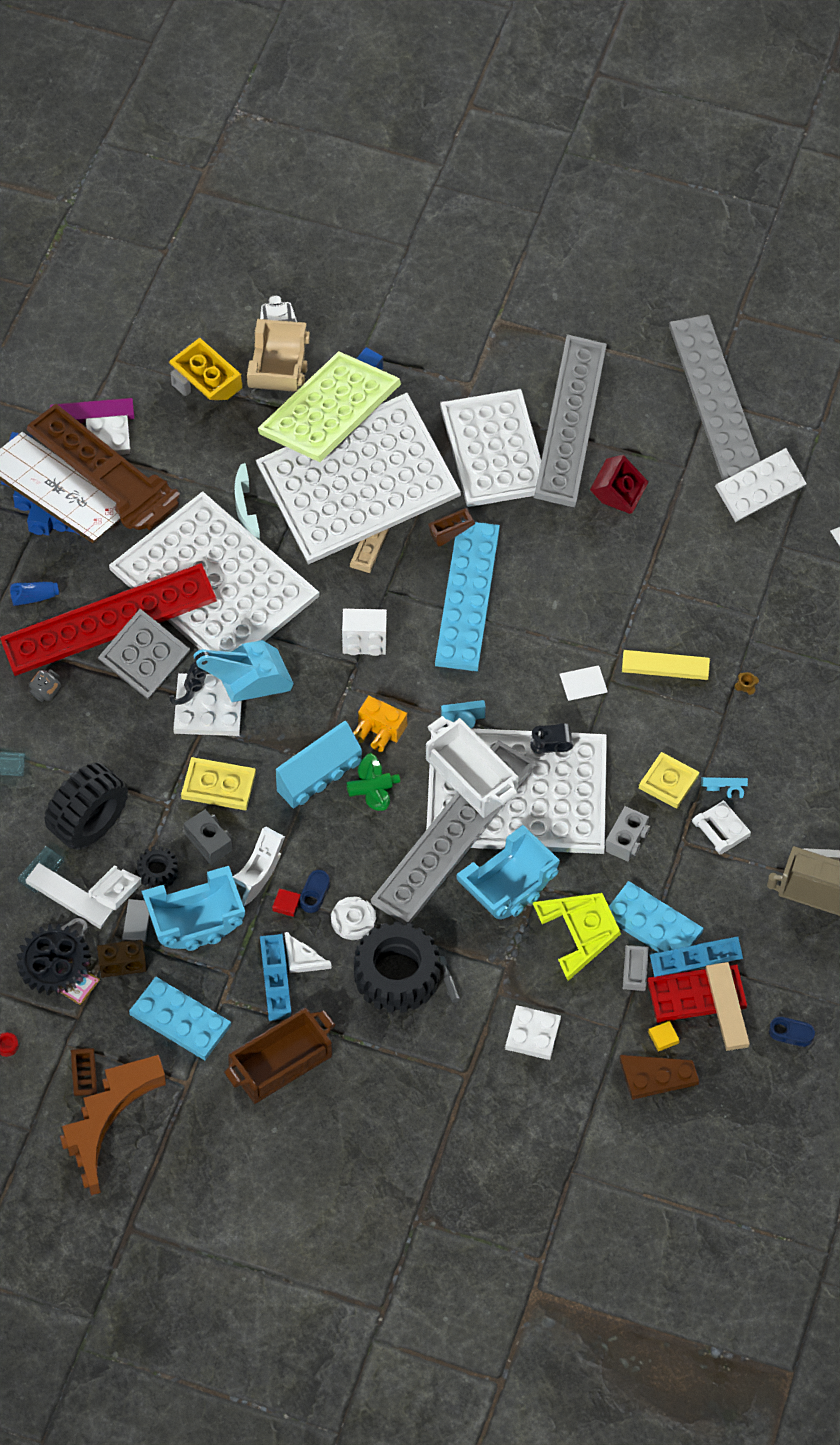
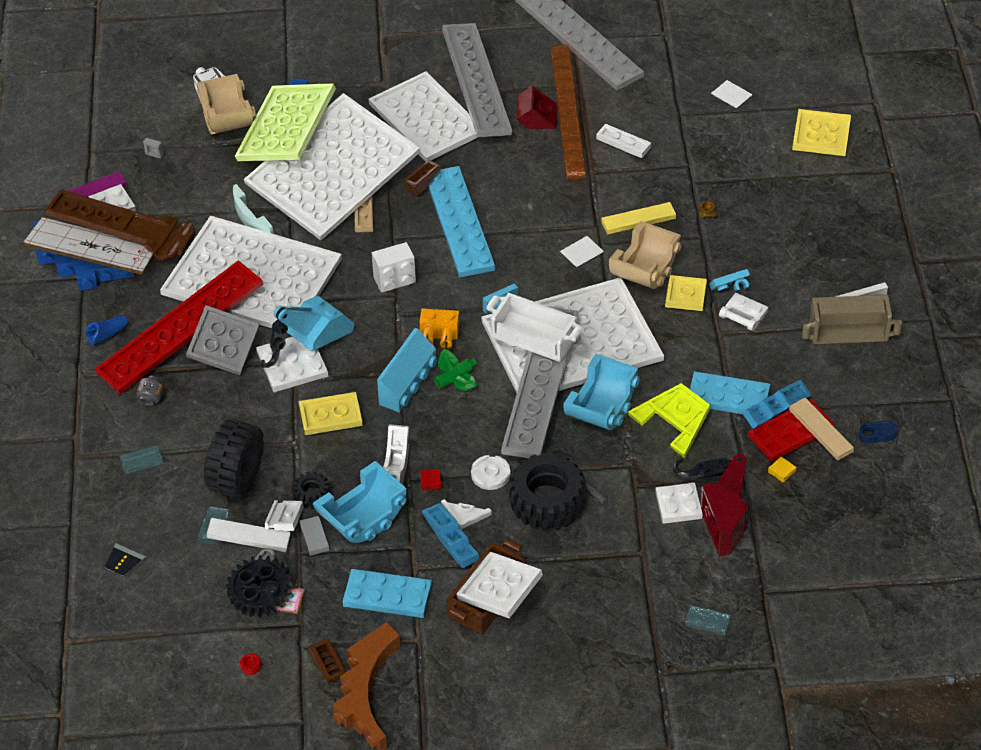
camera: 20 degrees left, 10 degrees down
(121, 958) = (316, 564): dark brown brick -> none
(207, 371) = (173, 130): yellow slope -> none
(210, 847) = (342, 453): dark grey brick -> none
(289, 1060) = (499, 584): none -> white plate
(316, 887) = (449, 460): dark blue piece -> none
(494, 1181) = (707, 620): none -> clear light blue tile
(553, 737) = (582, 291): black piece -> none
(575, 1052) = (721, 502): none -> dark red slope
(624, 833) = (675, 338): light grey brick -> none
(635, 968) = (732, 430): light grey tile -> none
(644, 723) = (648, 257): none -> tan cylinder
(653, 499) = (567, 113): none -> clear orange beam
(657, 1075) = (792, 499): reddish brown wing -> none
(697, 559) = (623, 140): none -> white plate
(760, 485) = (643, 77): white plate -> none

